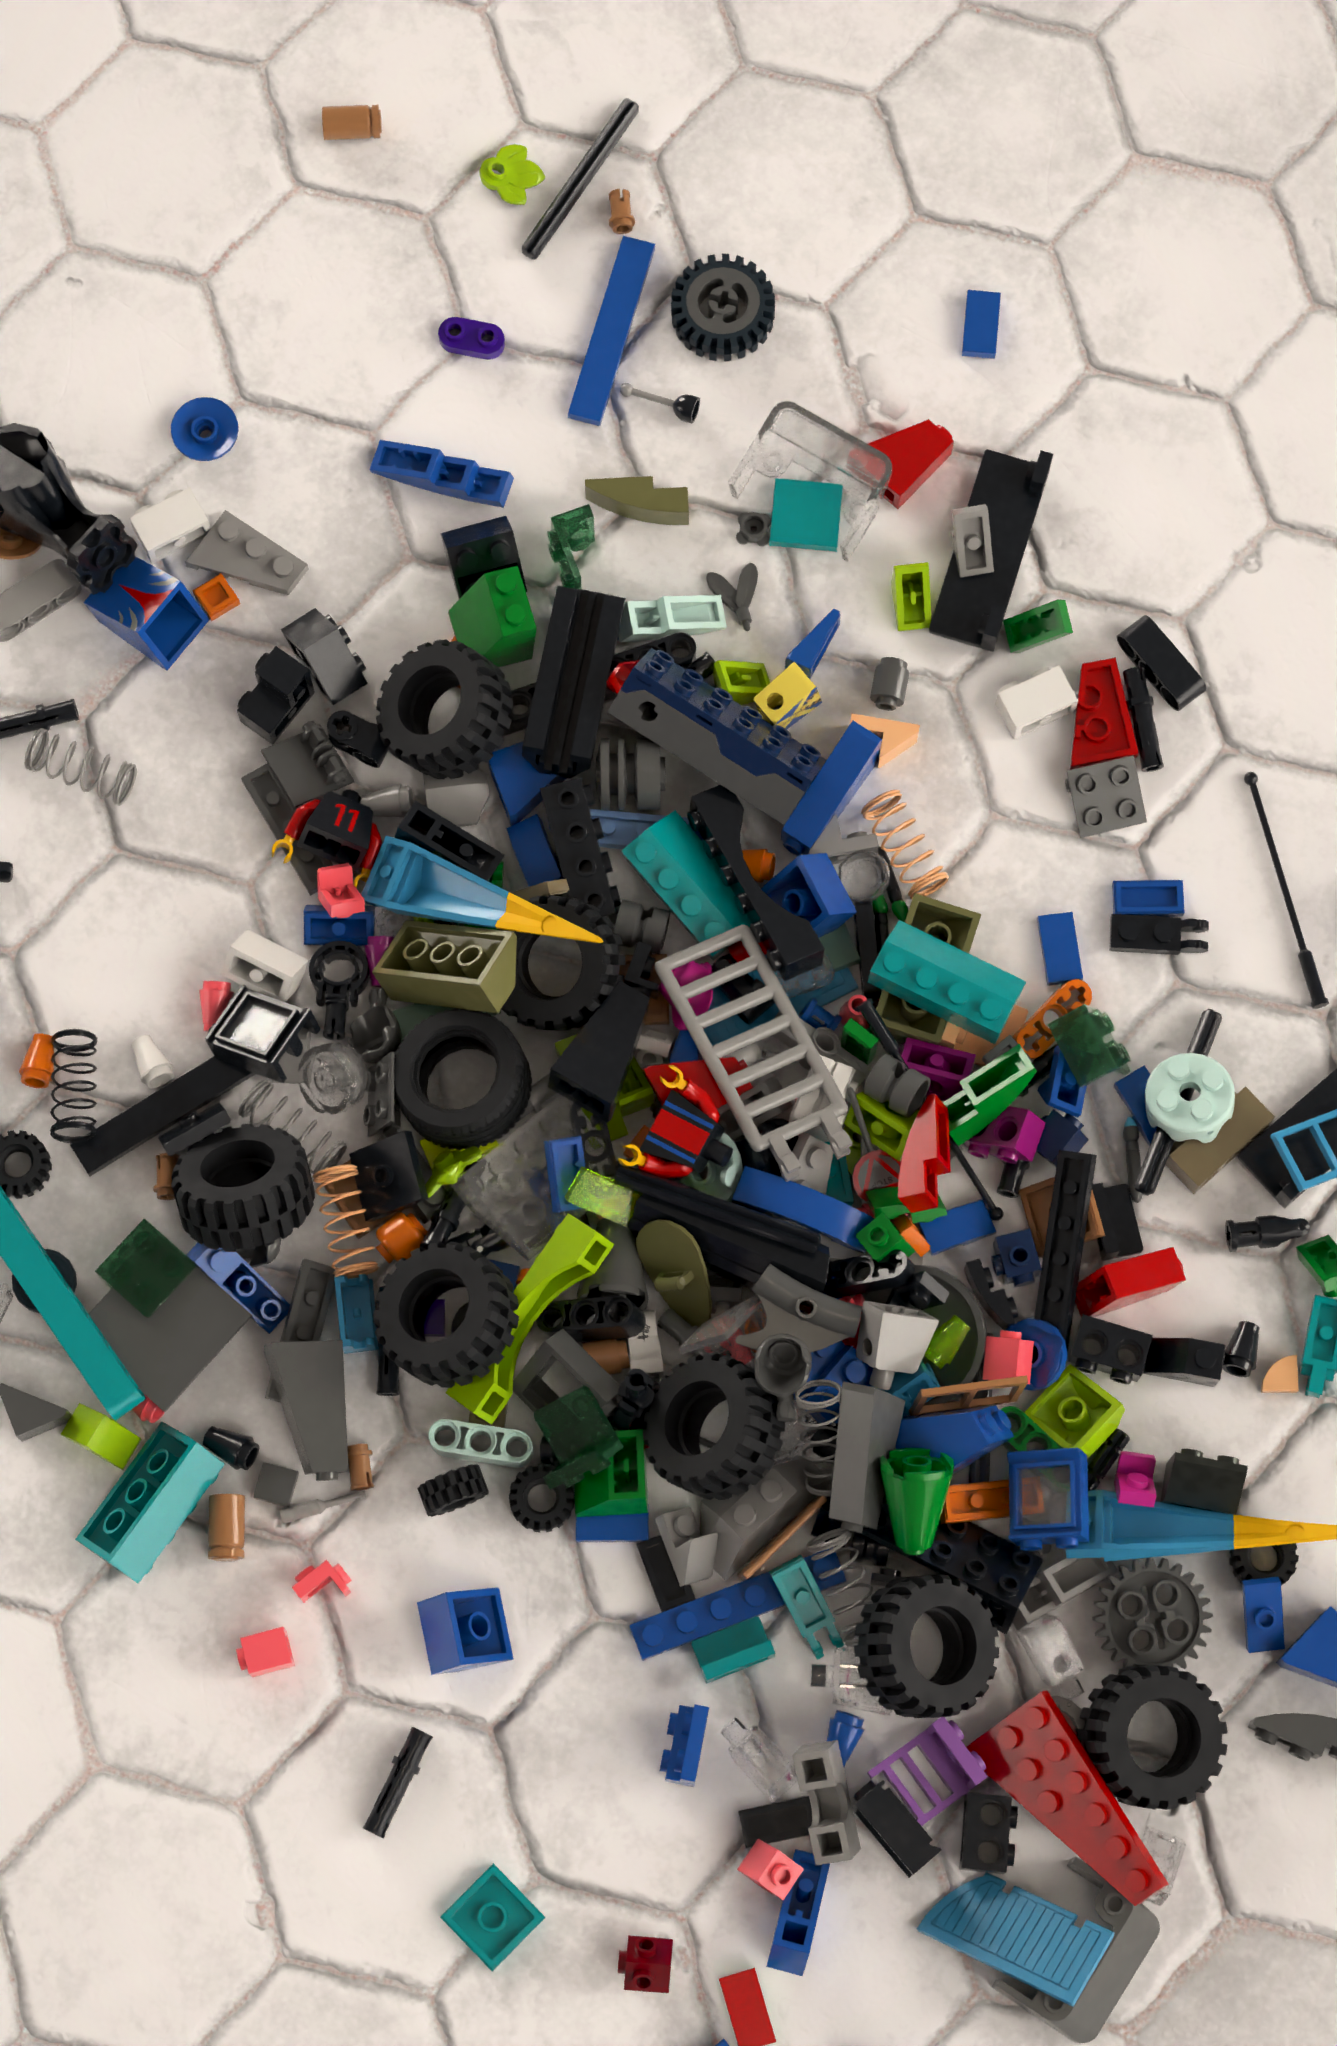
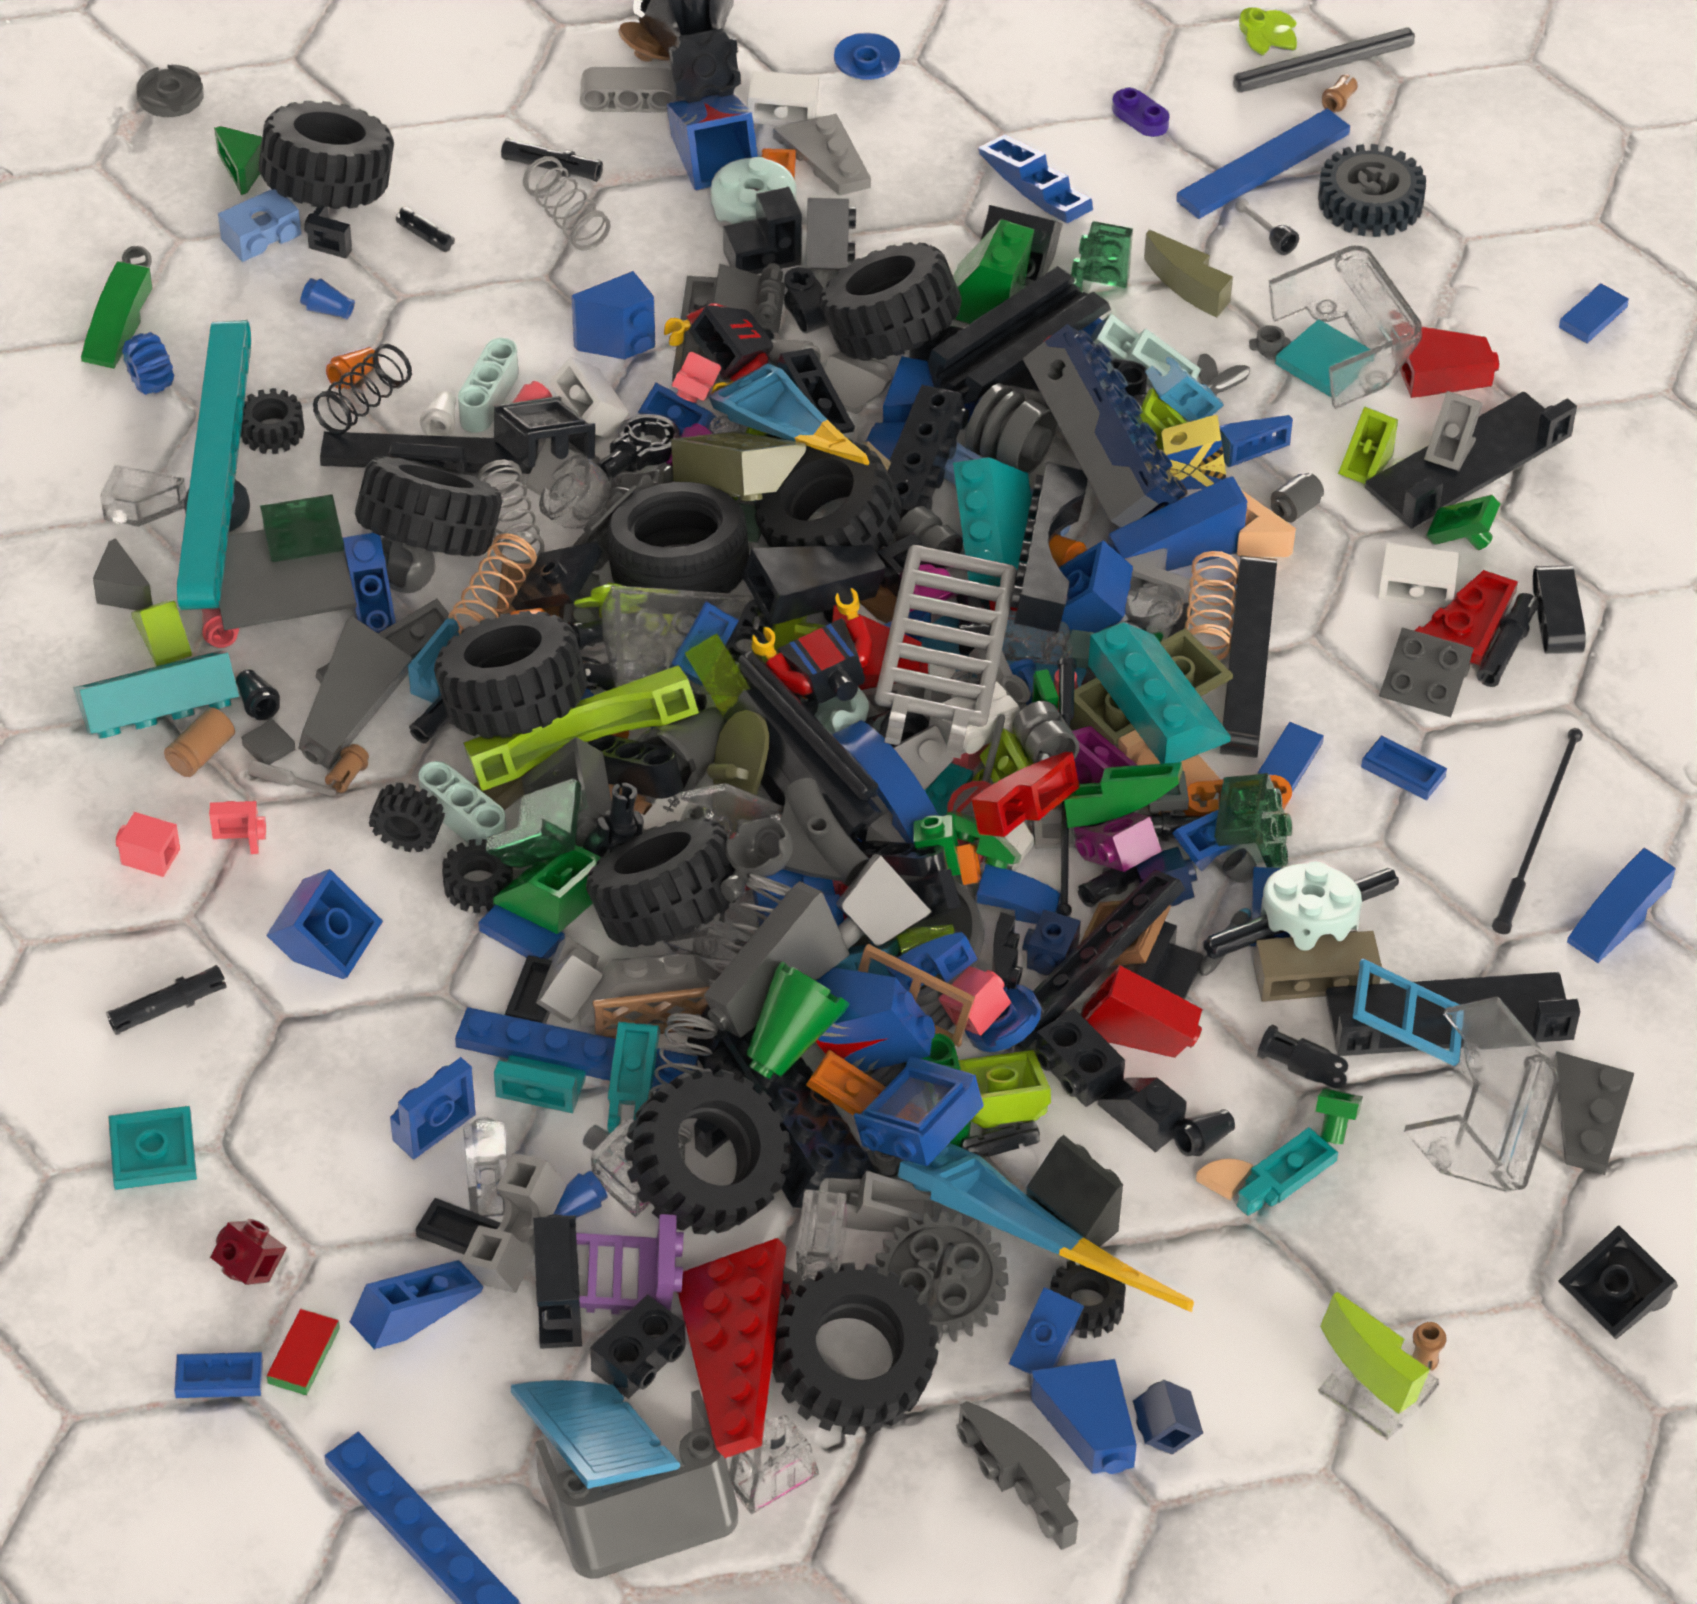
camera: 35 degrees right, 25 degrees down
(163, 989) = (488, 384): none -> light aqua beam
(220, 672) = (732, 184): none -> light aqua plate
(226, 870) = (614, 318): none -> blue slope
(734, 646) = (1184, 392): none -> dark azure hinge
(770, 1869) = (420, 1247): coral brick -> none
(966, 872) = (1249, 655): none -> black beam
(970, 1351) = (940, 956): none -> blue slope
(1105, 1087) = (1240, 866): none -> dark grey hinge
(1135, 1479) = (1017, 1163): dark pink bracket -> none
(1155, 934) = (1389, 796): black hinge -> none

